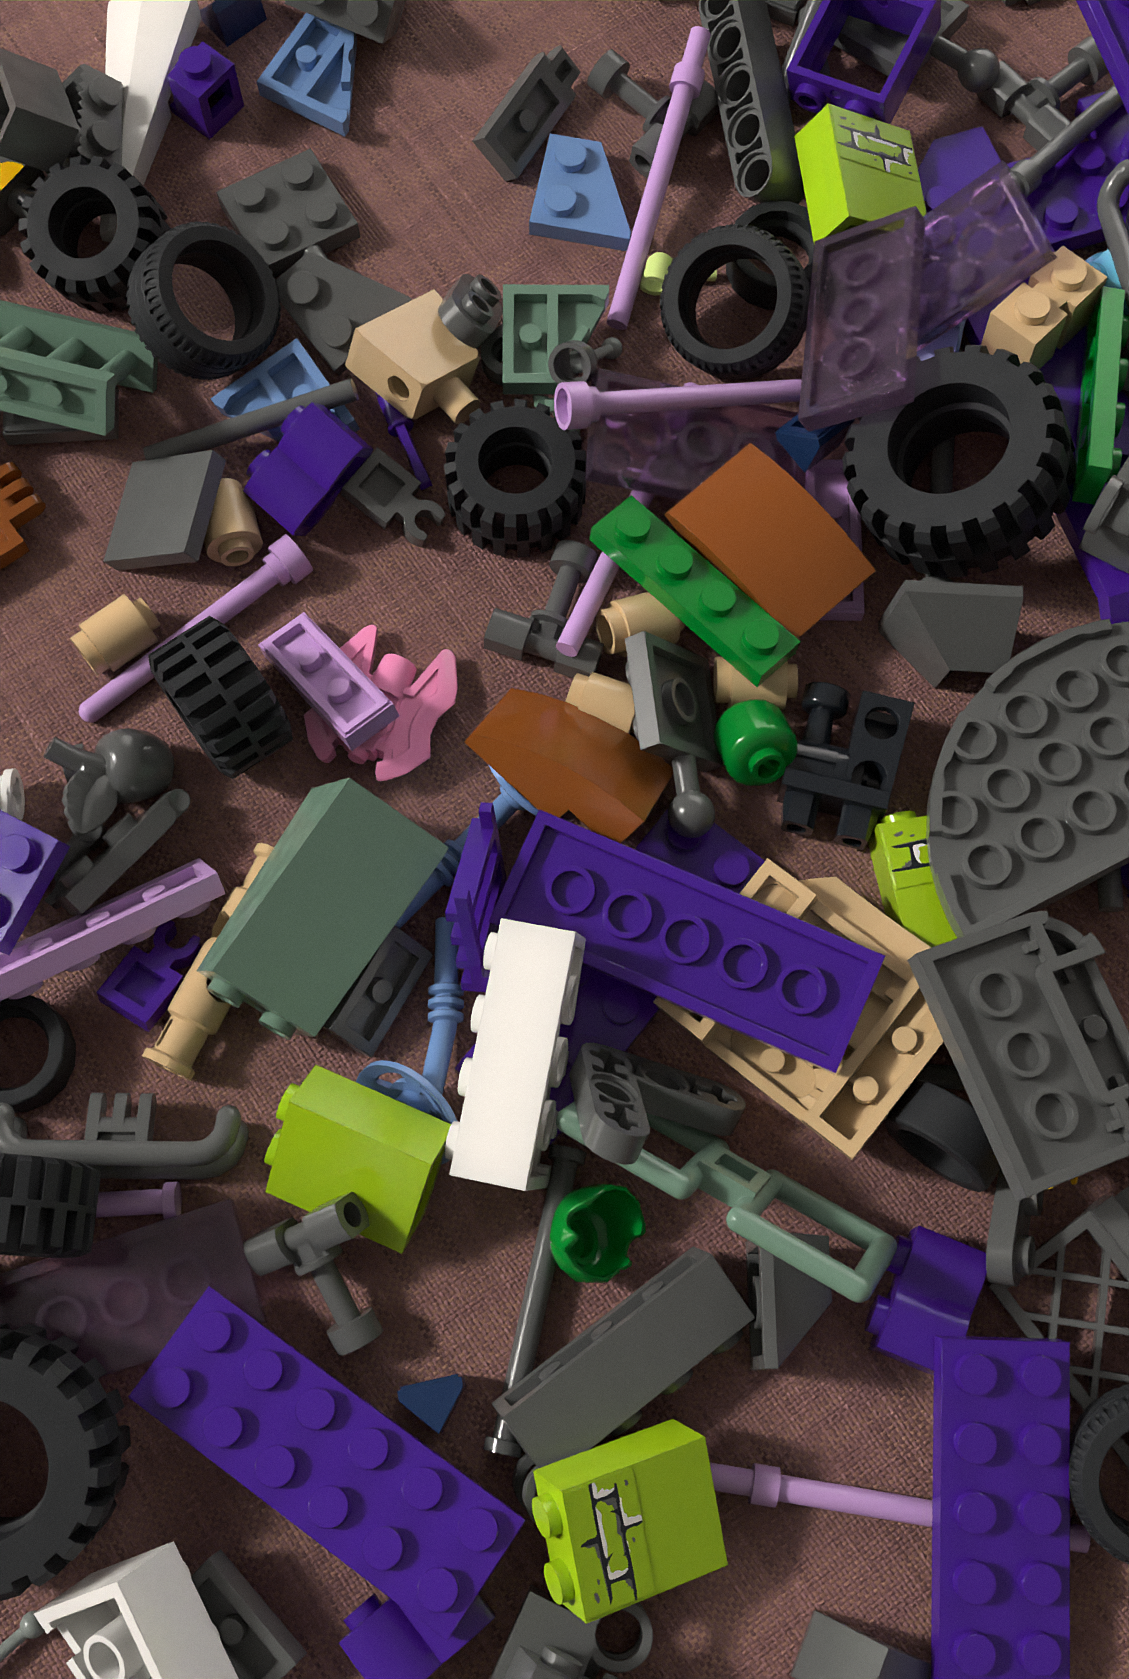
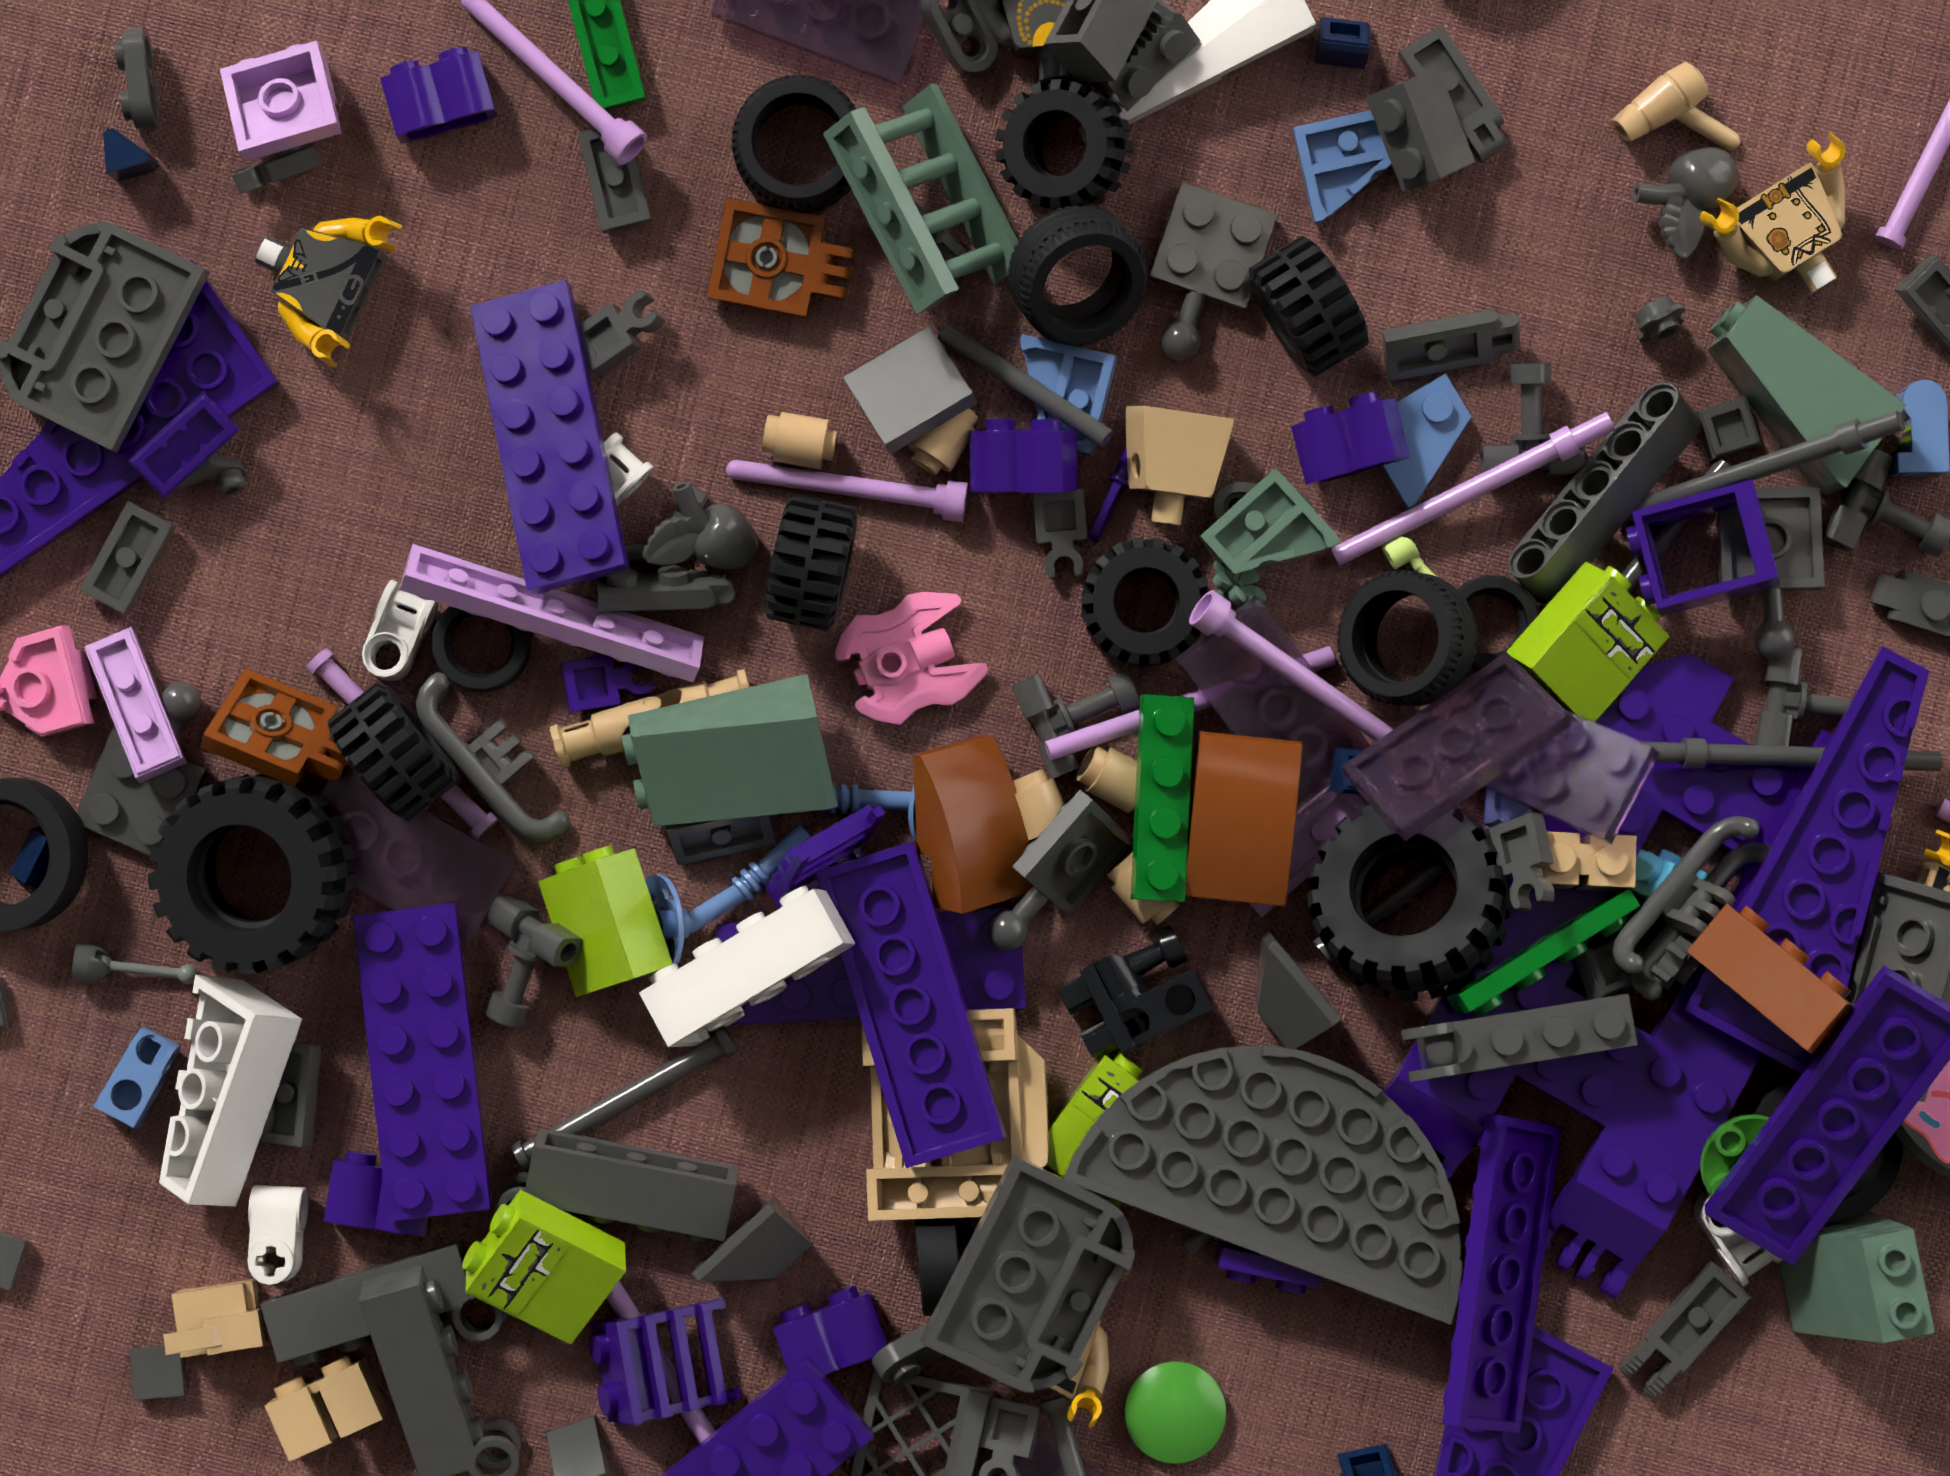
camera: 50 degrees right, 15 degrees up
(194, 79) = (1252, 97): dark purple brick -> none
(328, 681) = (889, 612): lavender tile -> none
(331, 303) = (1165, 361): dark grey wing -> none
(400, 159) = (1308, 306): none -> black tyre
(433, 1399) = (511, 1091): dark blue slope -> none
(471, 309) = (1242, 457): dark grey plate -> none
(535, 224) = (1349, 440): none -> dark purple brick
(566, 363) = (1256, 571): dark grey hinge -> none
(595, 1231) = (691, 1101): green hair -> none
(619, 1088) = (823, 1091): dark grey beam -> none
(749, 1194) = (788, 1160): sand green bar -> none
(755, 742) = (1096, 927): green head -> none
(801, 1522) = (633, 1370): none -> dark purple plate
(1007, 324) = (1522, 852): none -> dark grey plate

